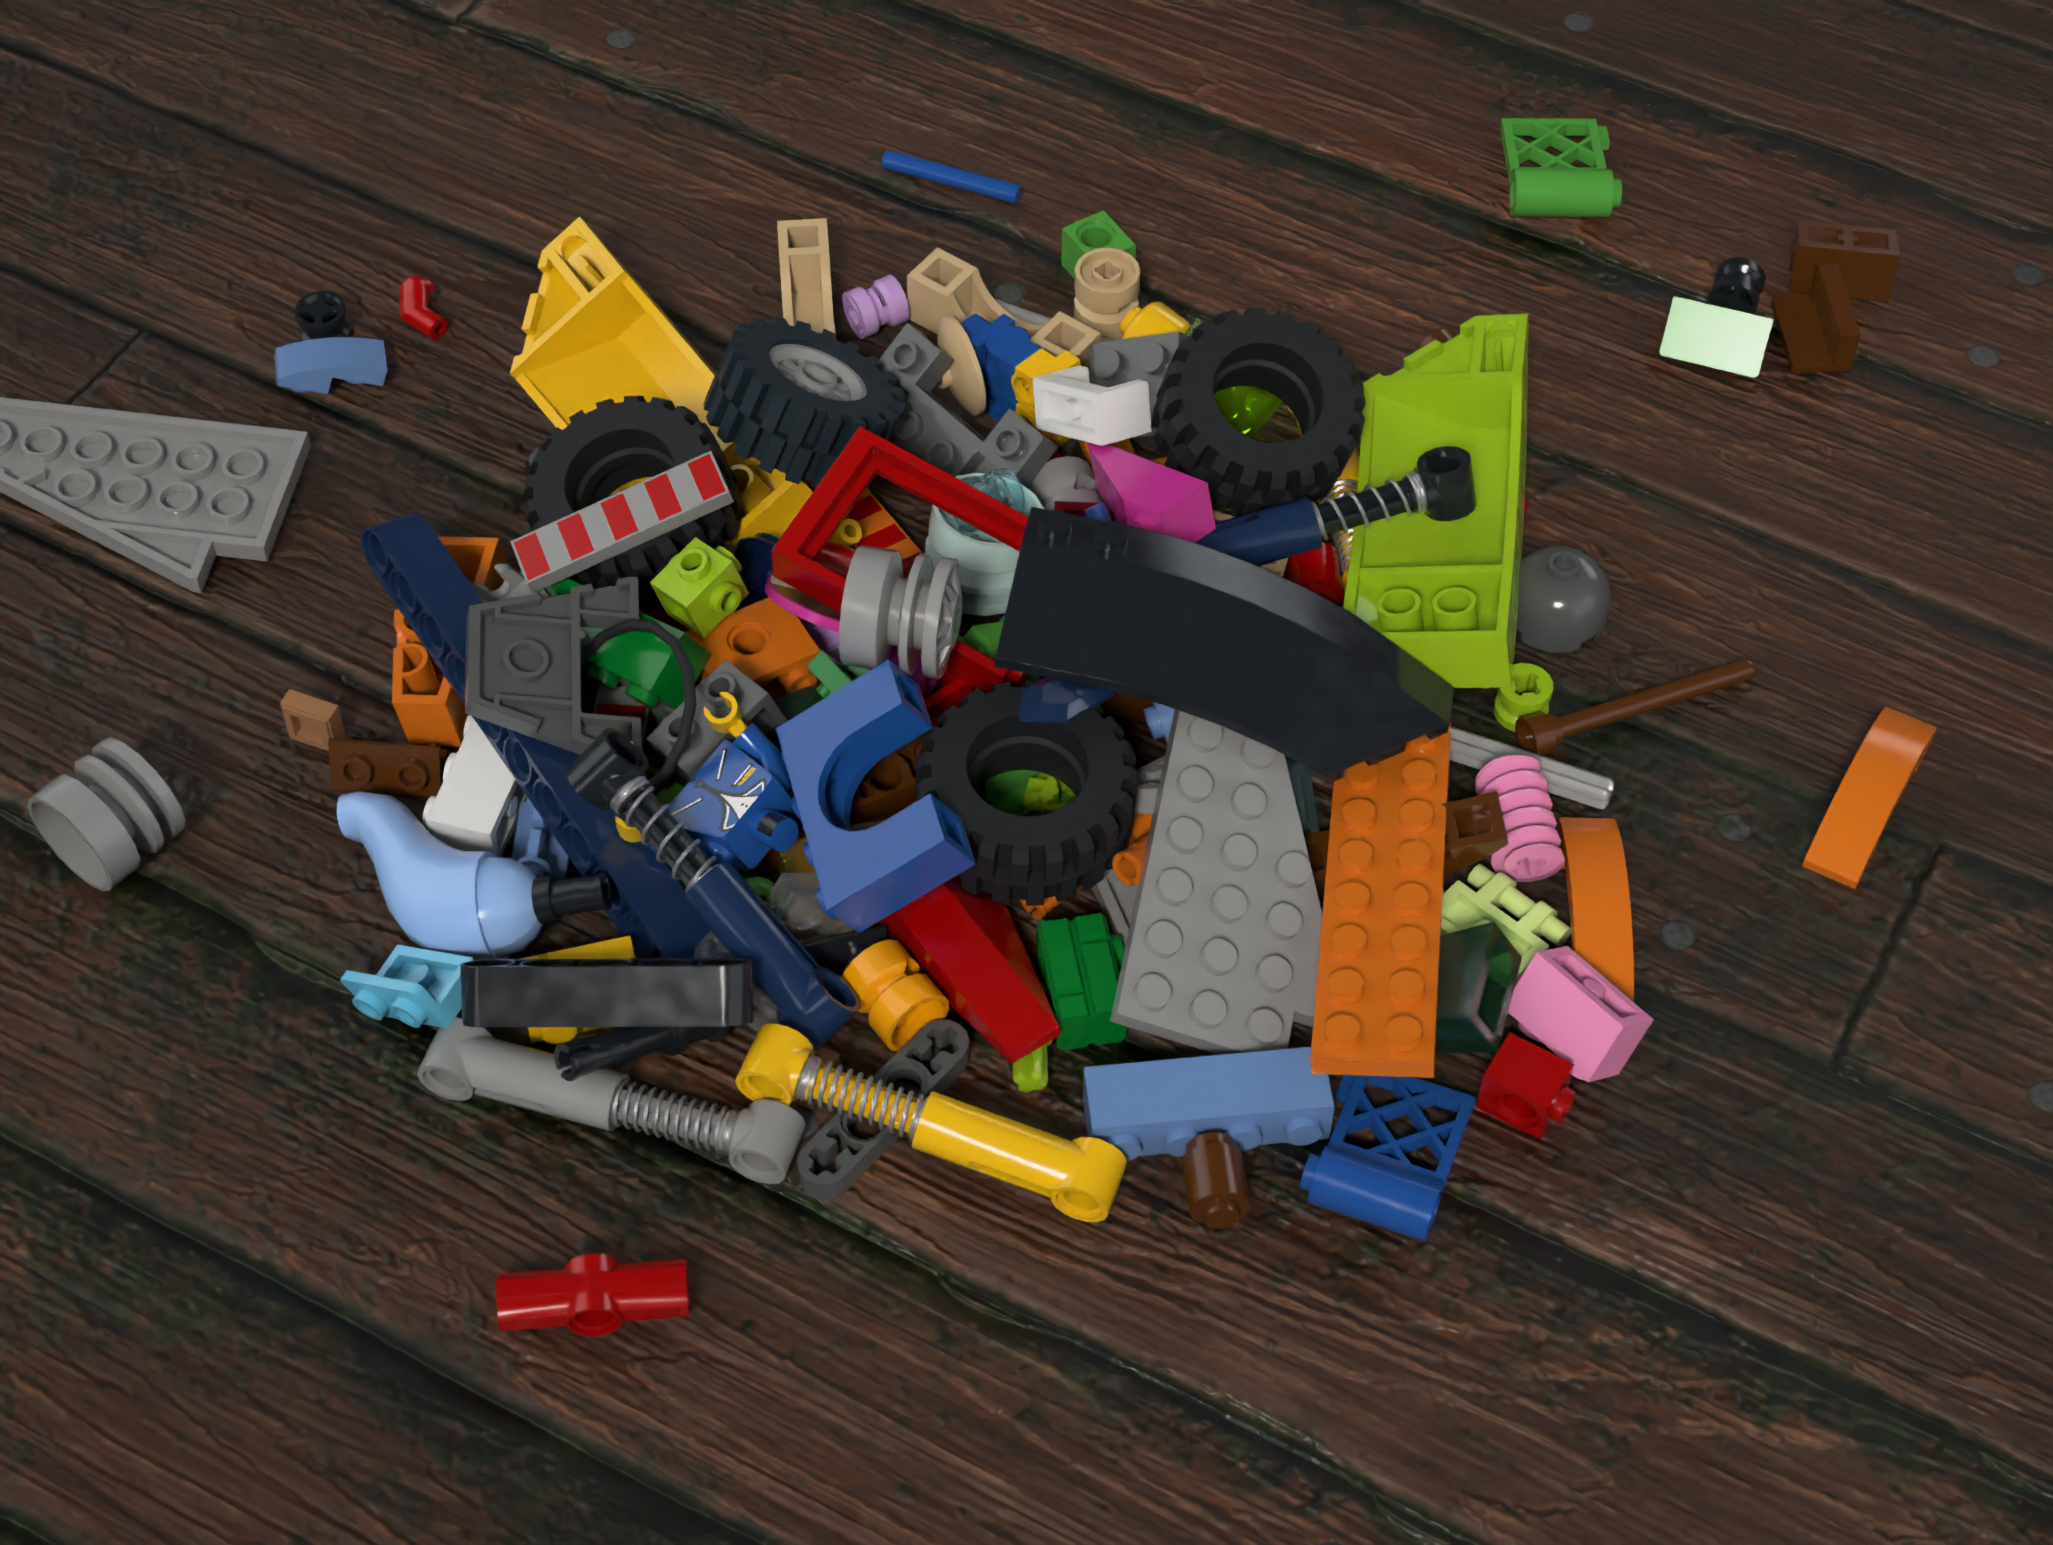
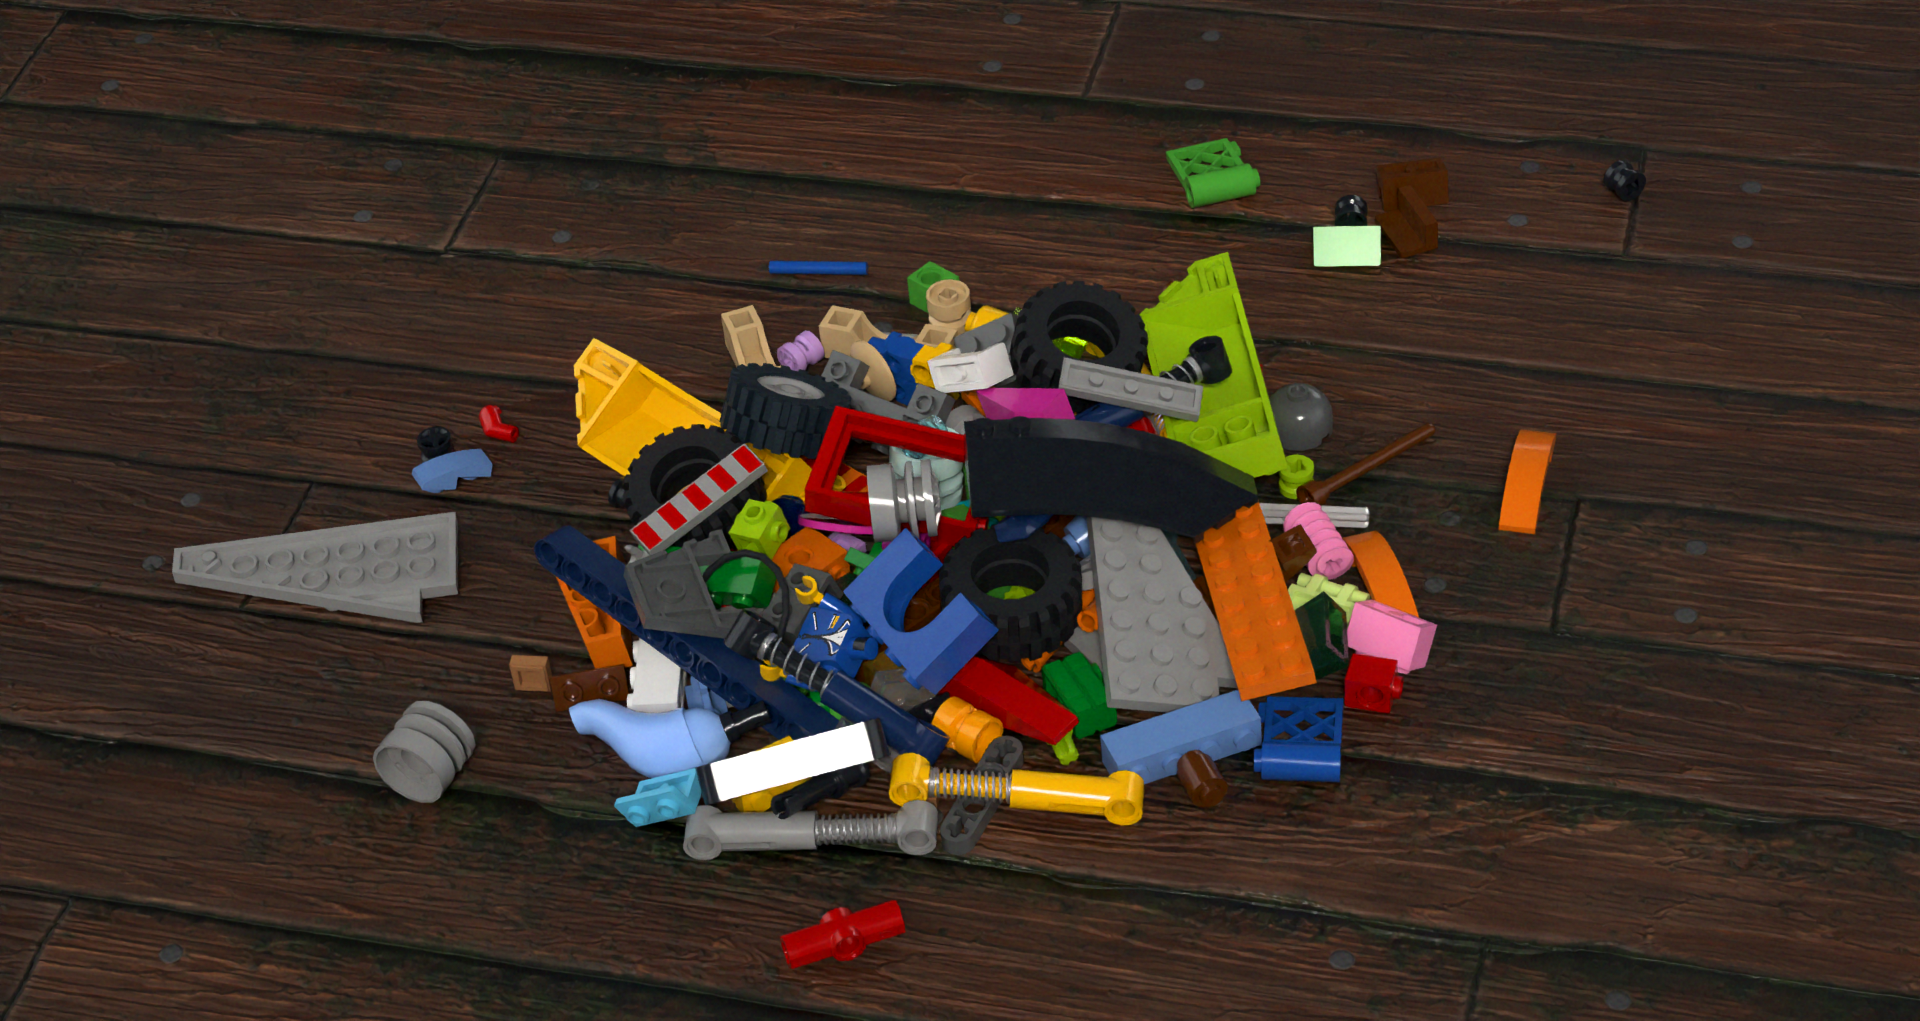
camera: 10 degrees left, 10 degrees down
(1310, 505) = (1131, 389): none -> light grey tile

